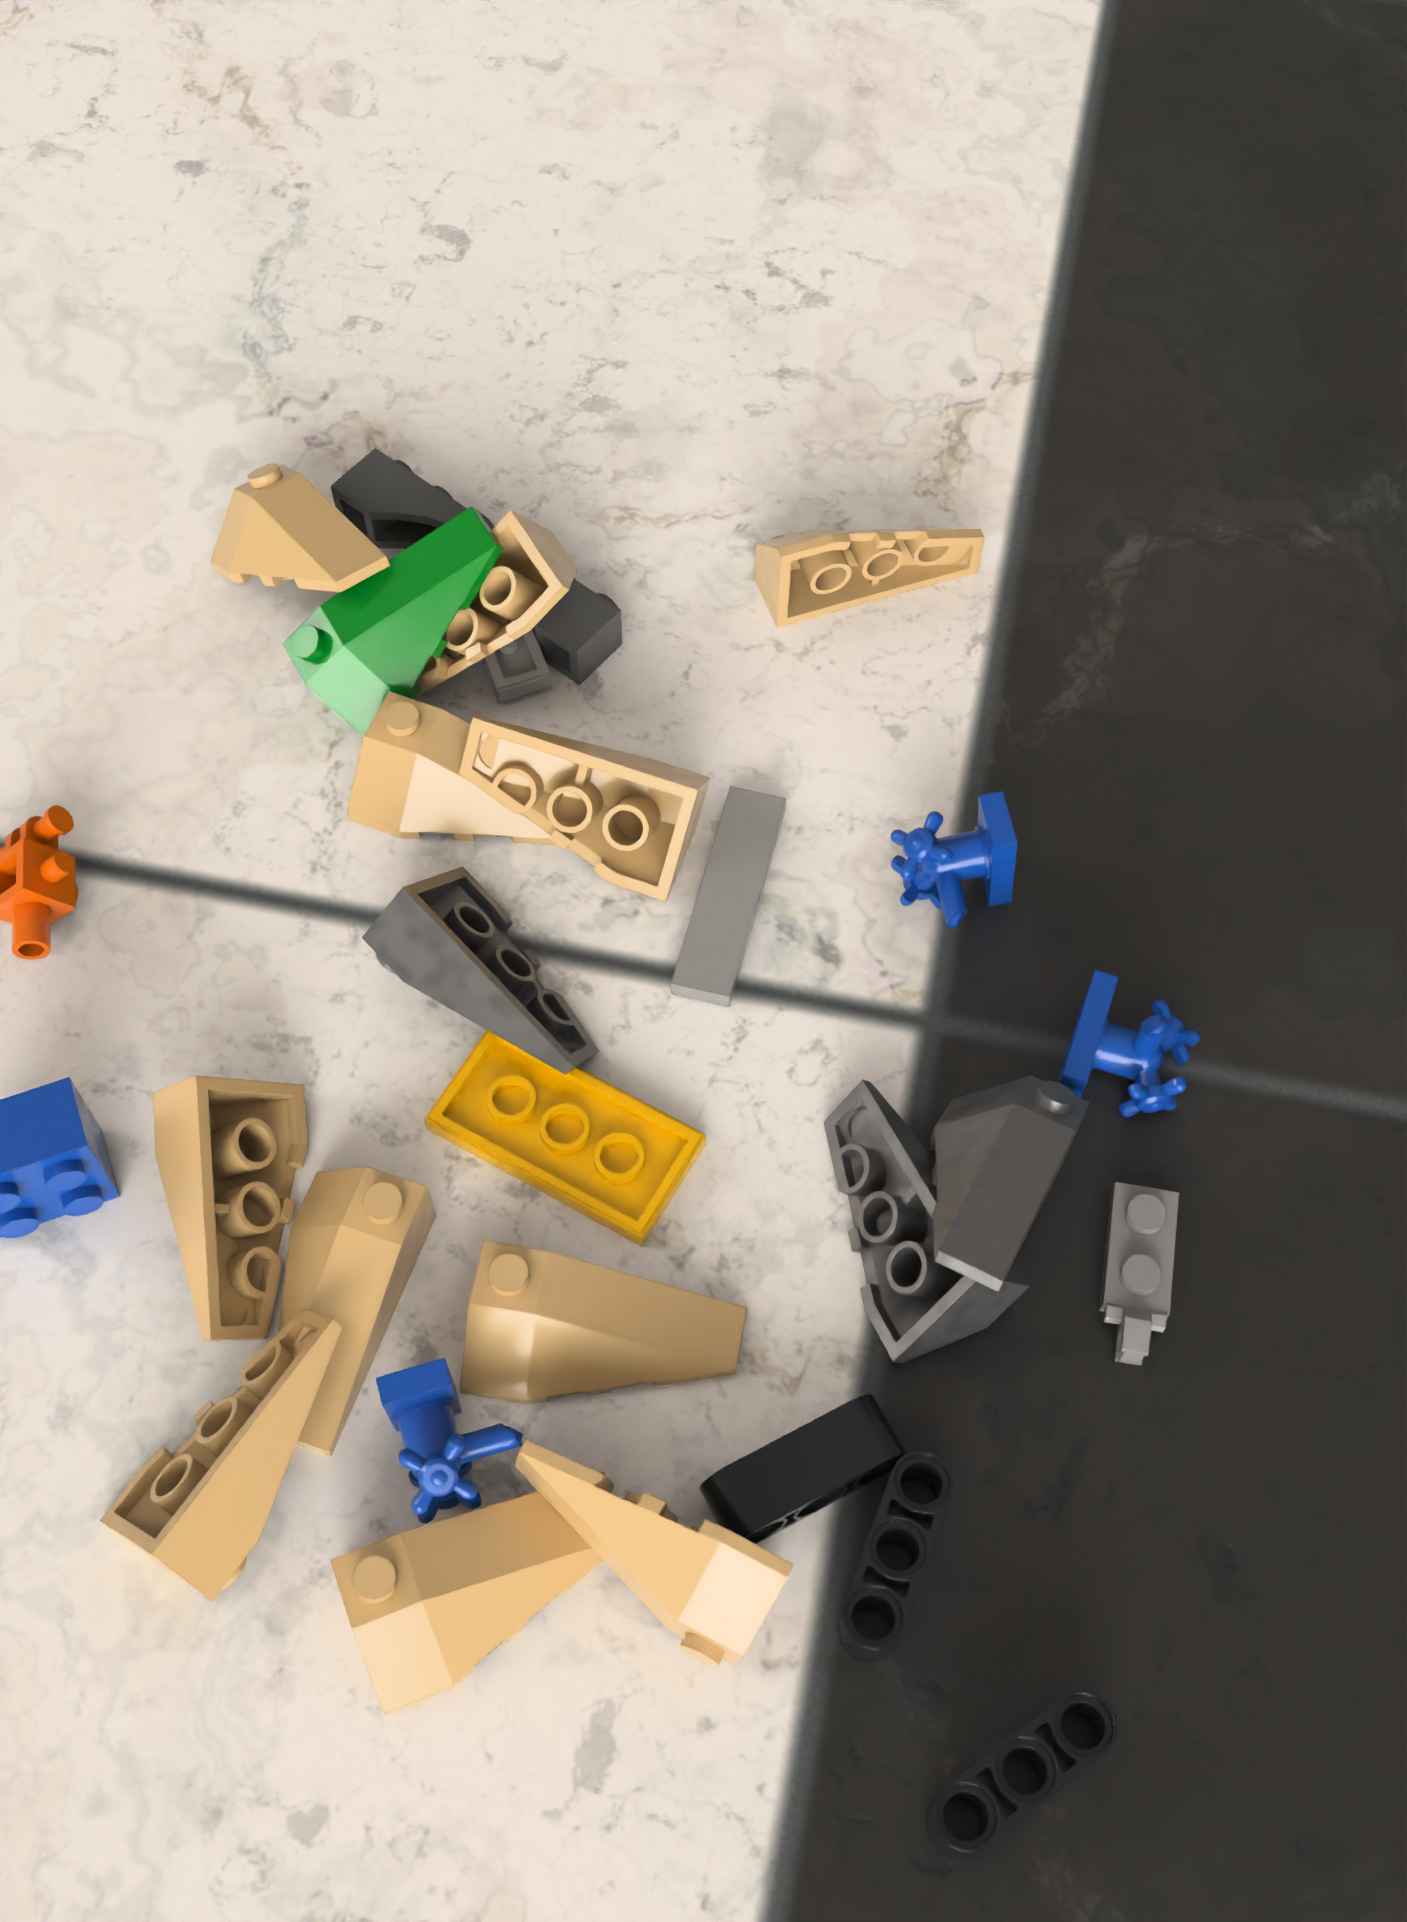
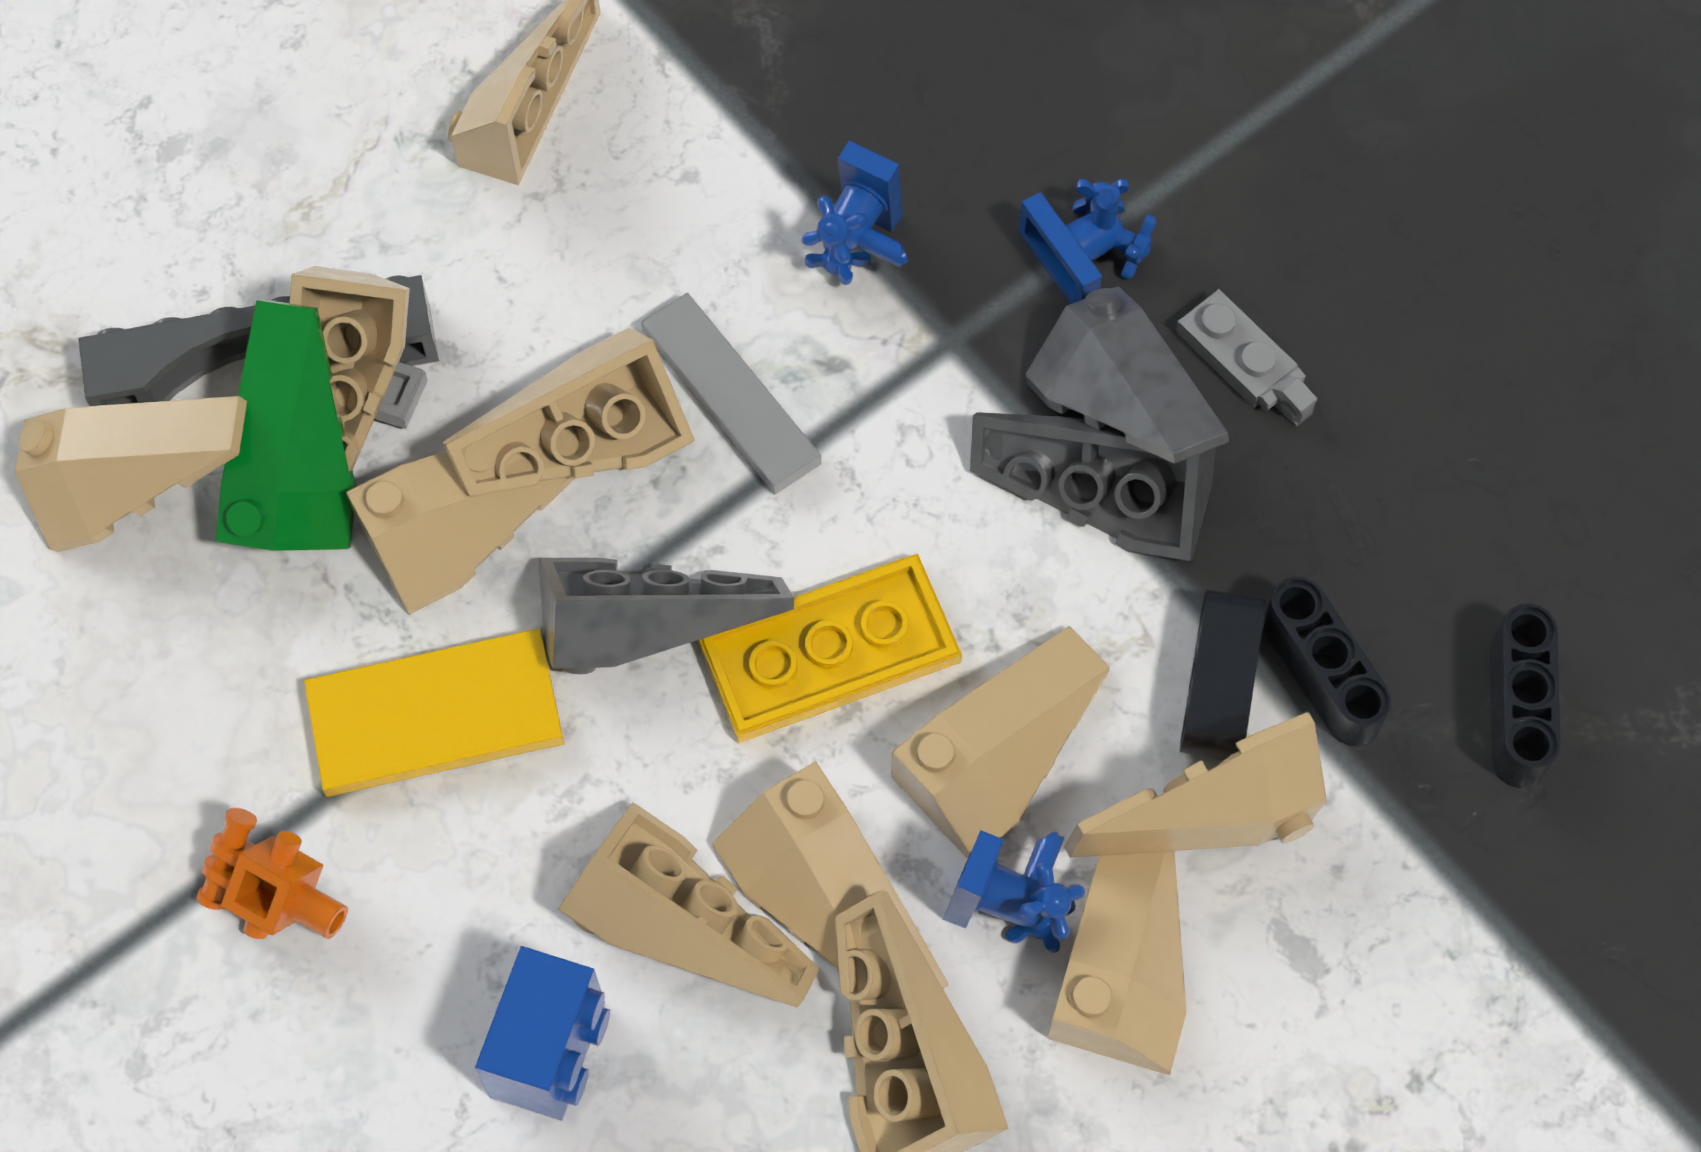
camera: 50 degrees left, 5 degrees up
(271, 893) = (433, 712): none -> yellow tile

